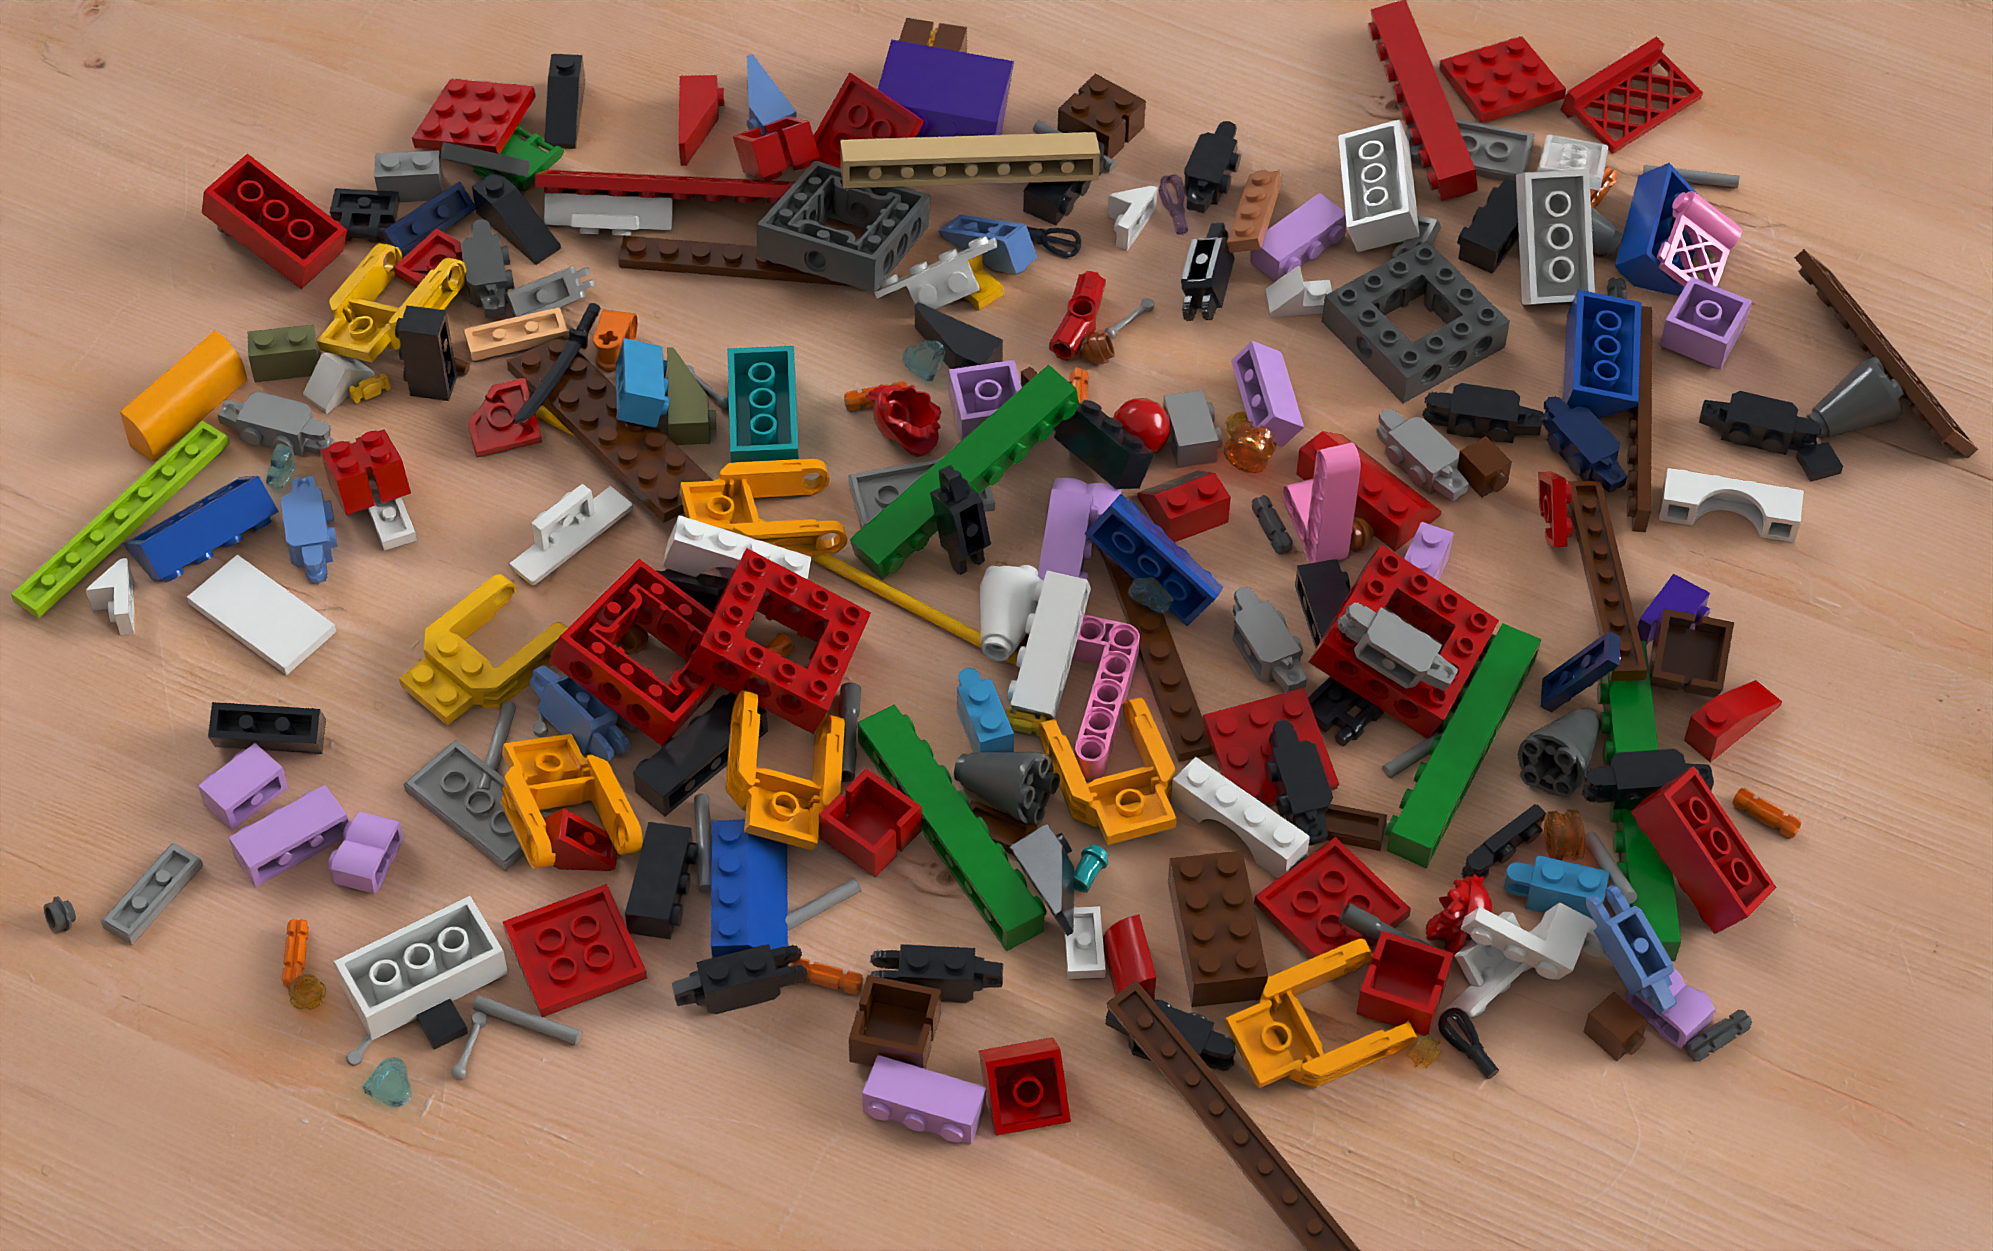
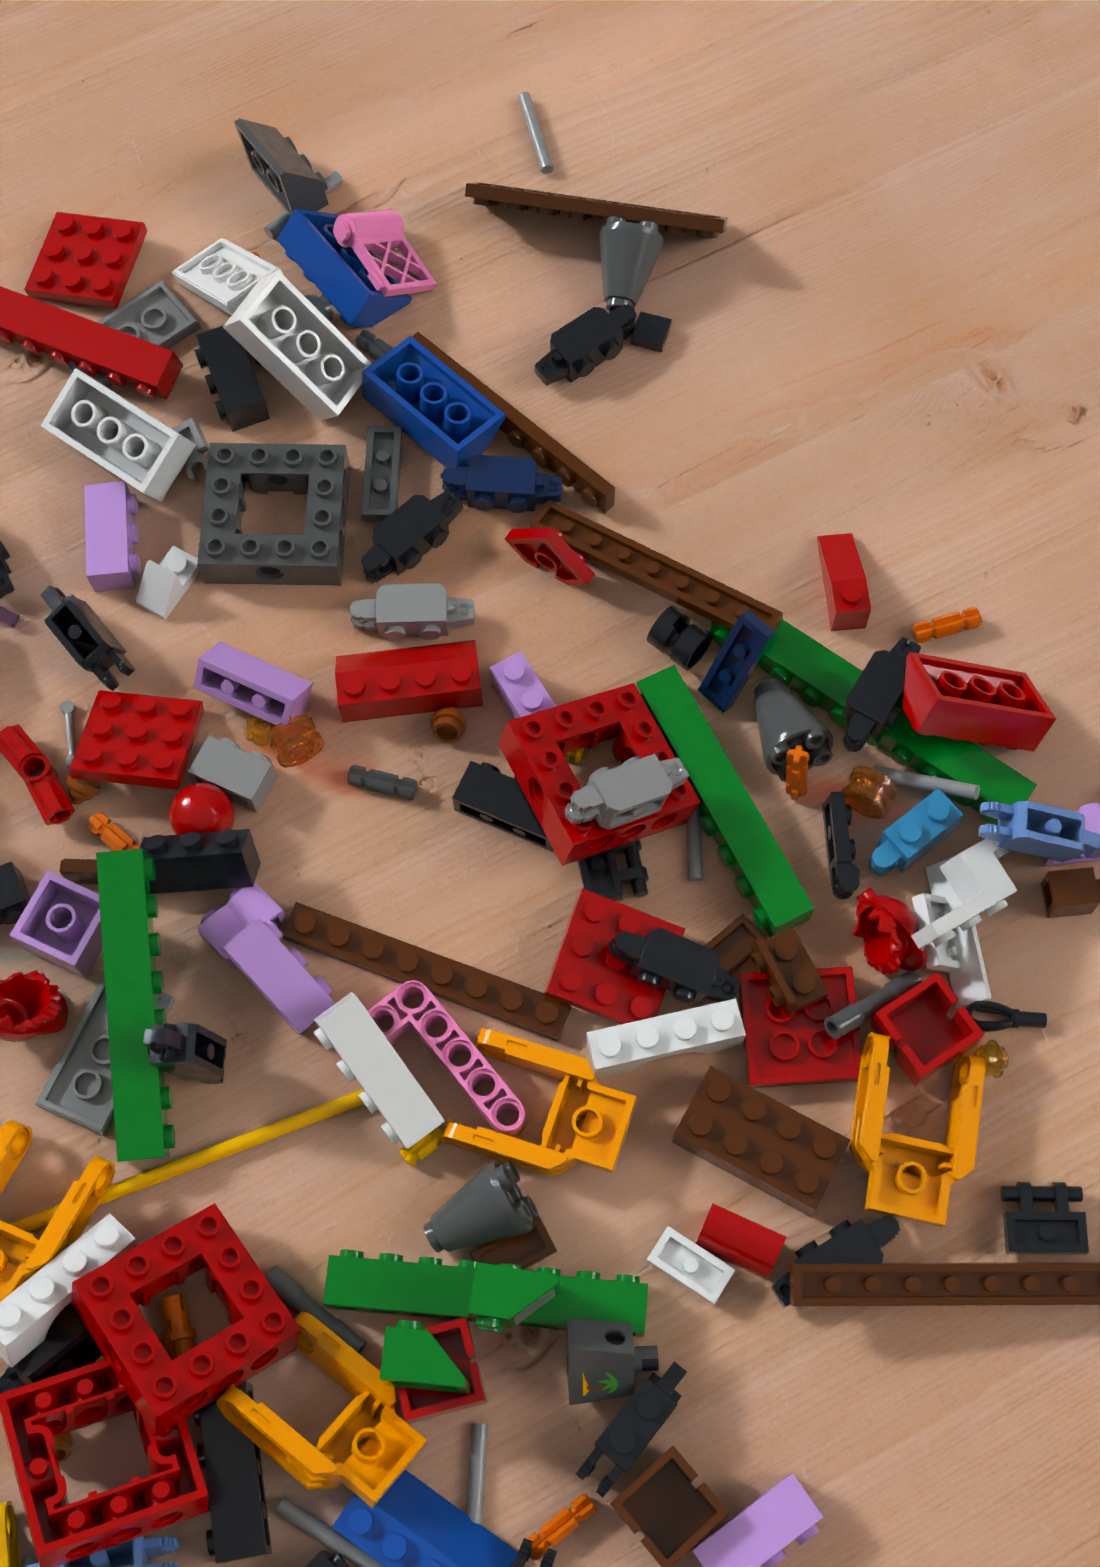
camera: 50 degrees left, 15 degrees up
(863, 780) = (418, 1361): none -> green slope
(957, 813) = (508, 1295): none -> green slope
(964, 914) = (604, 1360): none -> dark grey torso
(983, 714) = (395, 1180): dark azure brick -> none
(1005, 605) = (307, 1078): white cone -> none
(1025, 1085) = (801, 1428): red slope -> none
(1050, 871) = (607, 1246): slope -> none
(1093, 860) = (616, 1203): teal pin -> none
(1148, 552) = (360, 911): blue slope -> none
(1150, 593) = (387, 941): clear light blue tile -> none
(1161, 354) = (137, 740): none -> red plate
(1187, 504) = (305, 836): red slope -> none
(1254, 211) = (56, 550): nougat plate -> none
(1266, 641) = (501, 878): light grey hinge -> none
(1320, 1167) = (1044, 1232): none -> black plate
(1326, 504) = (428, 745): bright pink beam -> none
(1364, 862) = (789, 971): none -> reddish brown bracket
(1484, 466) = (464, 574): reddish brown brick -> none
(1518, 363) = (381, 472): none -> dark grey plate
(1531, 773) = (796, 772): none -> orange axle
(1569, 630) = (676, 635): none -> black wheel
(1622, 73) = (163, 186): red fence -> none
(1678, 596) = (712, 540): dark purple arch -> none
(1689, 655) = (775, 563): reddish brown piece -> none
(1701, 135) = (281, 167): none -> dark grey slope
(1705, 323) = (463, 306): lavender brick -> none
(1770, 508) = (675, 400): white arch -> none
(1915, 278) = (535, 133): none -> light grey bar

